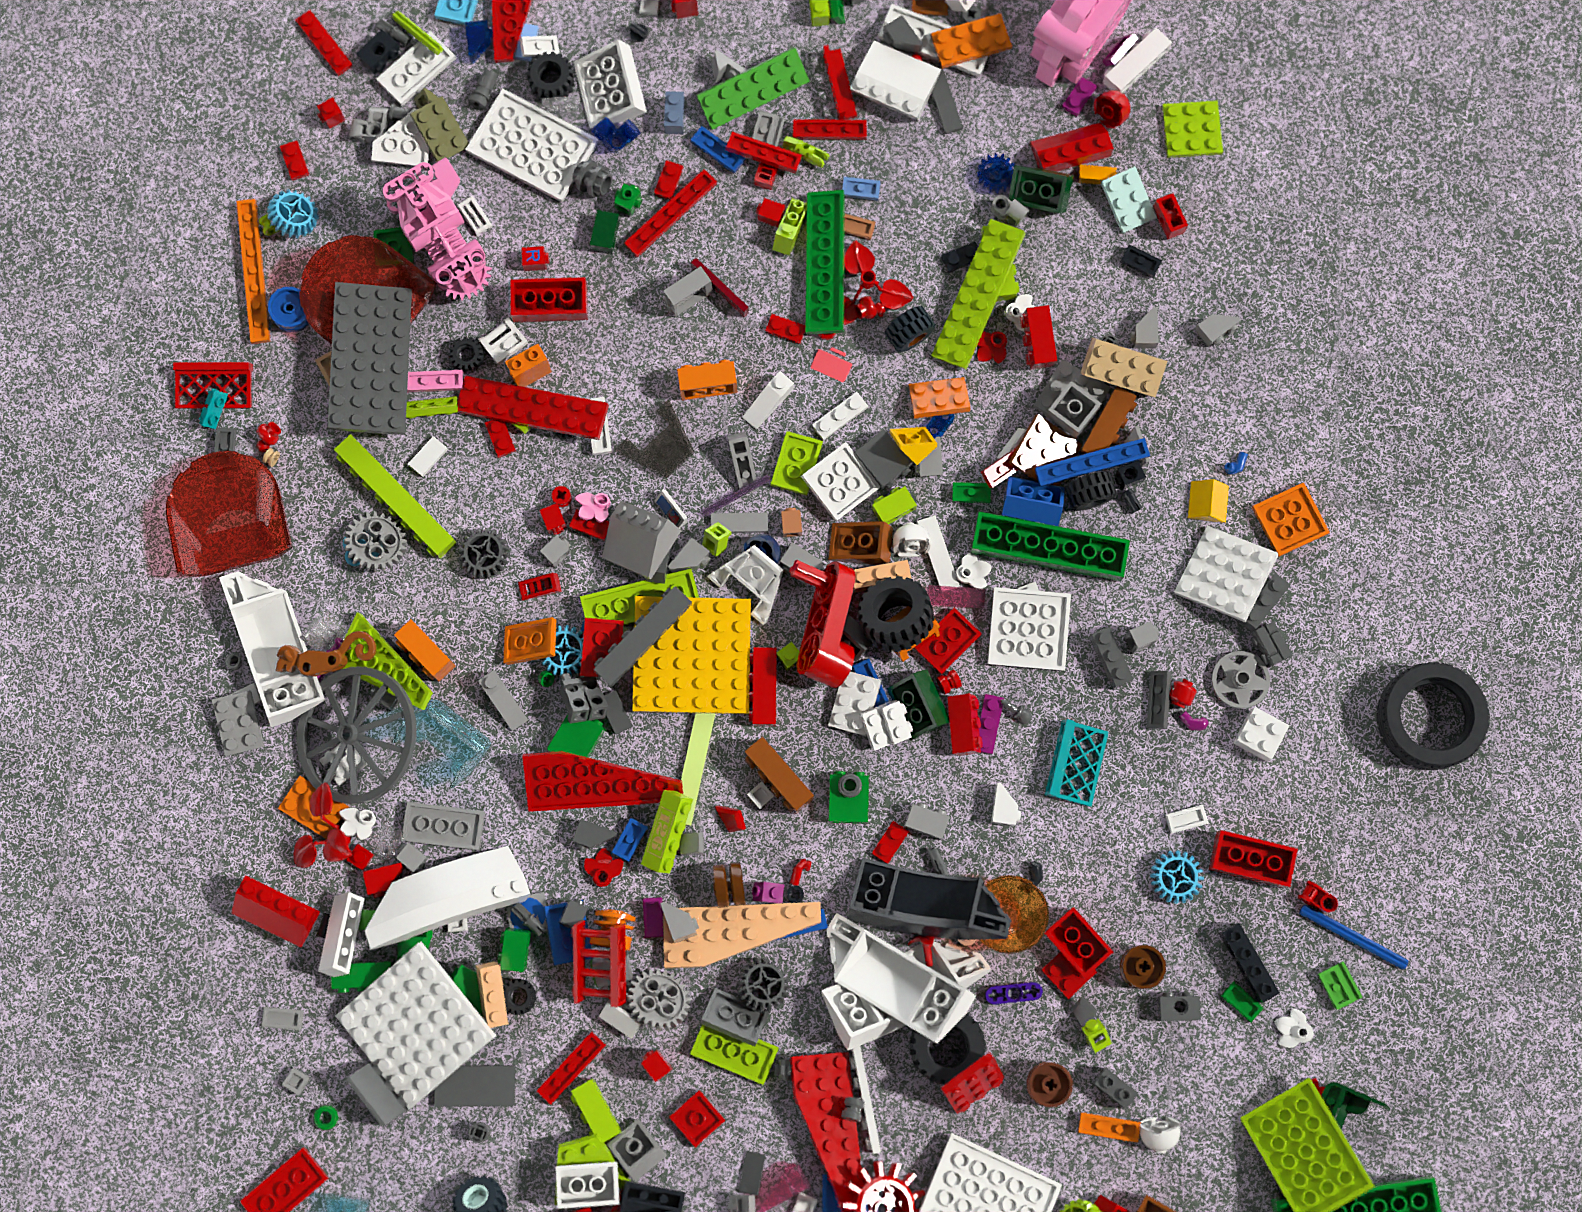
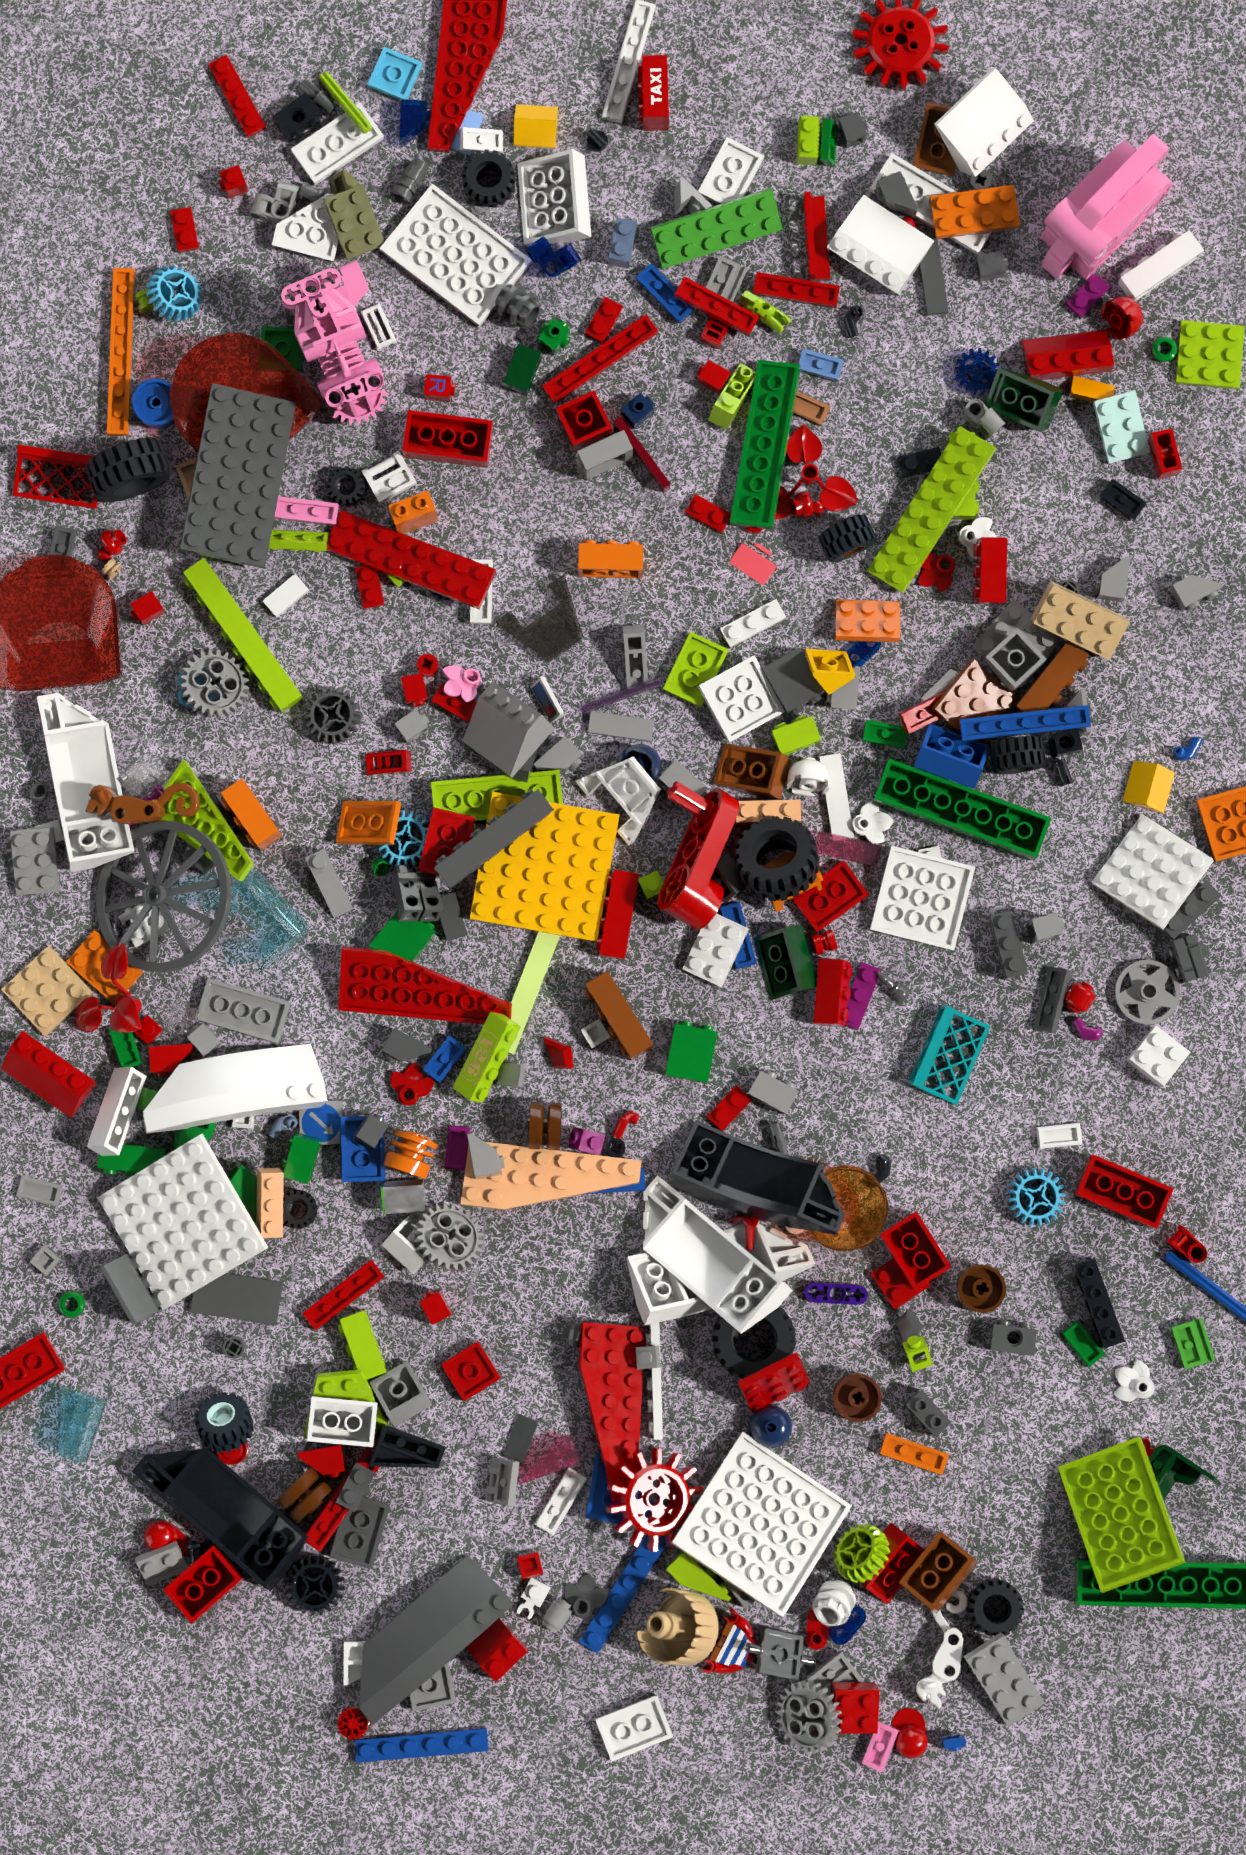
camera: 10 degrees right, 5 degrees up
(211, 415) = (59, 495): teal hinge -> none
(264, 837) = (47, 991): none -> tan plate
(272, 367) = (128, 469): none -> black tyre
(306, 486) = (146, 608): none -> red brick
(322, 930) = (97, 1100): black pin -> none
(342, 876) = (126, 1049): none -> green plate
(355, 822) = (148, 994): white plate -> none
(493, 921) = (282, 1123): none -> sand blue arm
(528, 919) = (321, 1127): dark grey axle -> none
(584, 29) = (535, 126): none -> yellow slope
(617, 959) = (410, 1182): red fence -> none
(664, 265) = (584, 420): none -> red brick
(710, 250) = (638, 410): none -> dark blue brick
(716, 539) = (592, 741): lime brick -> none
(732, 1017) = (528, 1269): dark grey plate -> none
(735, 1054) = (522, 1305): lime plate -> none
(757, 40) = (730, 172): none -> white plate
(762, 977) = (564, 1221): dark grey gear -> none
(769, 400) = (676, 593): white slope -> none
(791, 522) = (678, 736): nougat brick -> none
(843, 791) = (704, 1039): dark grey piece -> none
(852, 1109) = (639, 1389): dark grey wheel -> none
(855, 1079) = (648, 1357): none -> light grey plate
(881, 146) = (851, 319): none -> black arm
(886, 724) = (746, 978): white plate -> none
(966, 1120) = (762, 1418): none -> dark blue cylinder
(992, 84) = (991, 266): none -> flat silver brick
(1004, 808) = (860, 1091): white slope -> none
(1119, 50) = (1143, 248): tile -> none
(1152, 137) = (1161, 357): none -> green piece
(1160, 1134) = (967, 1470): white cylinder -> none

